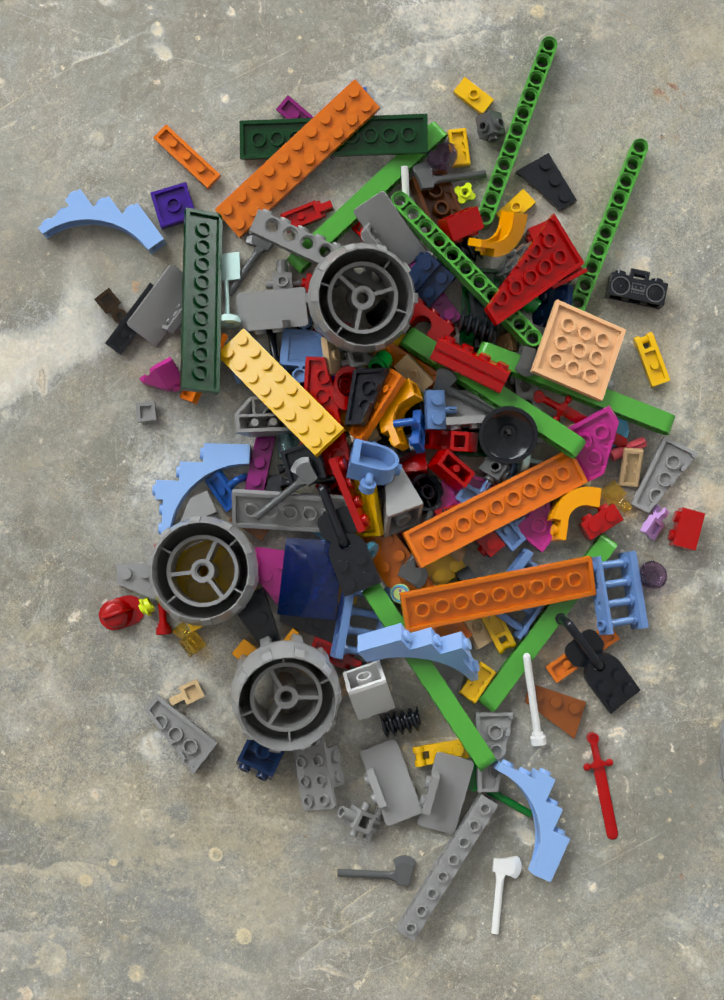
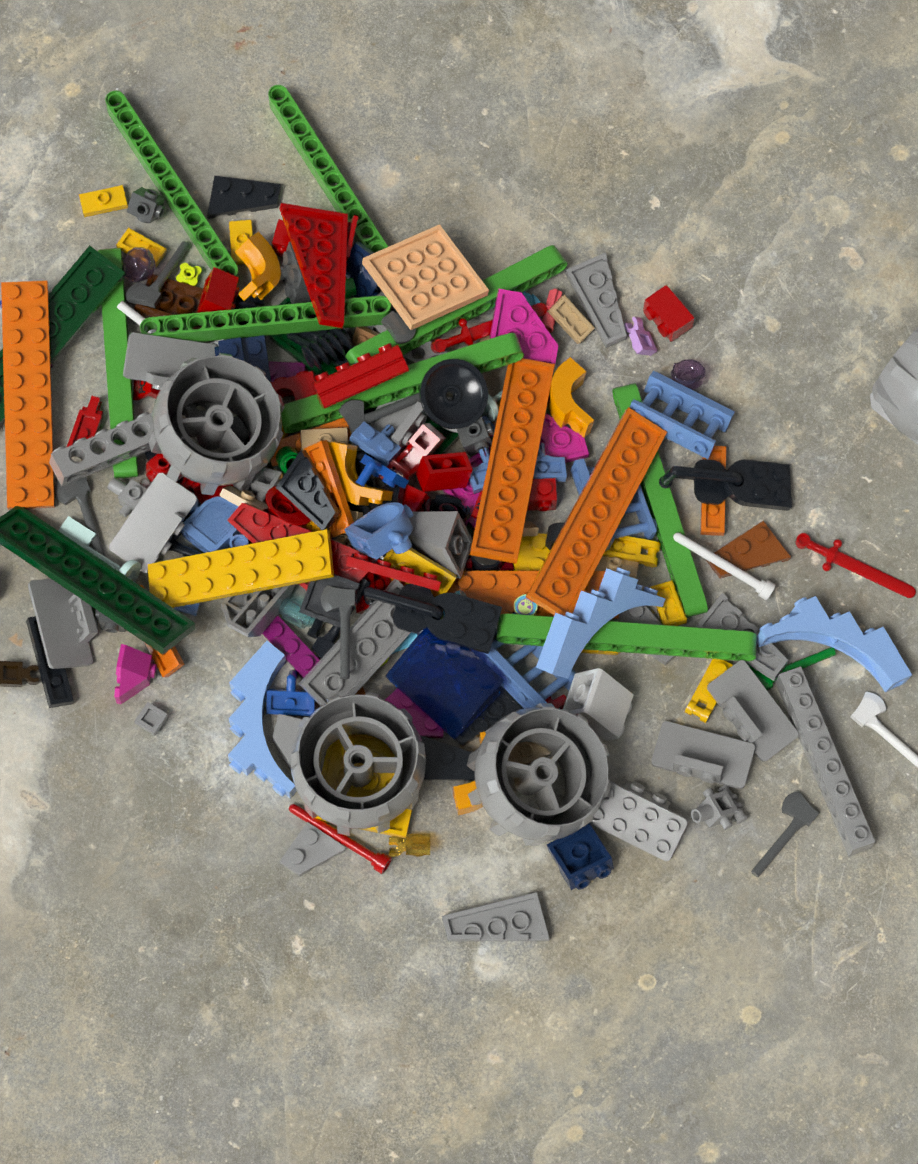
camera: 55 degrees left, 15 degrees down
(120, 612) = (330, 894): red piece -> none
(146, 606) = (345, 861): neon yellow plate -> none
(189, 692) = (465, 884): tan plate -> none
(401, 722) = (650, 701): black piece -> none
(410, 572) = (511, 582): dark grey piece -> none
(599, 522) = (601, 383): red brick -> none
(614, 494) = (586, 354): clear yellow plate -> none
(636, 291) = (409, 195): black piece -> none
(651, 360) = (484, 229): yellow plate -> none

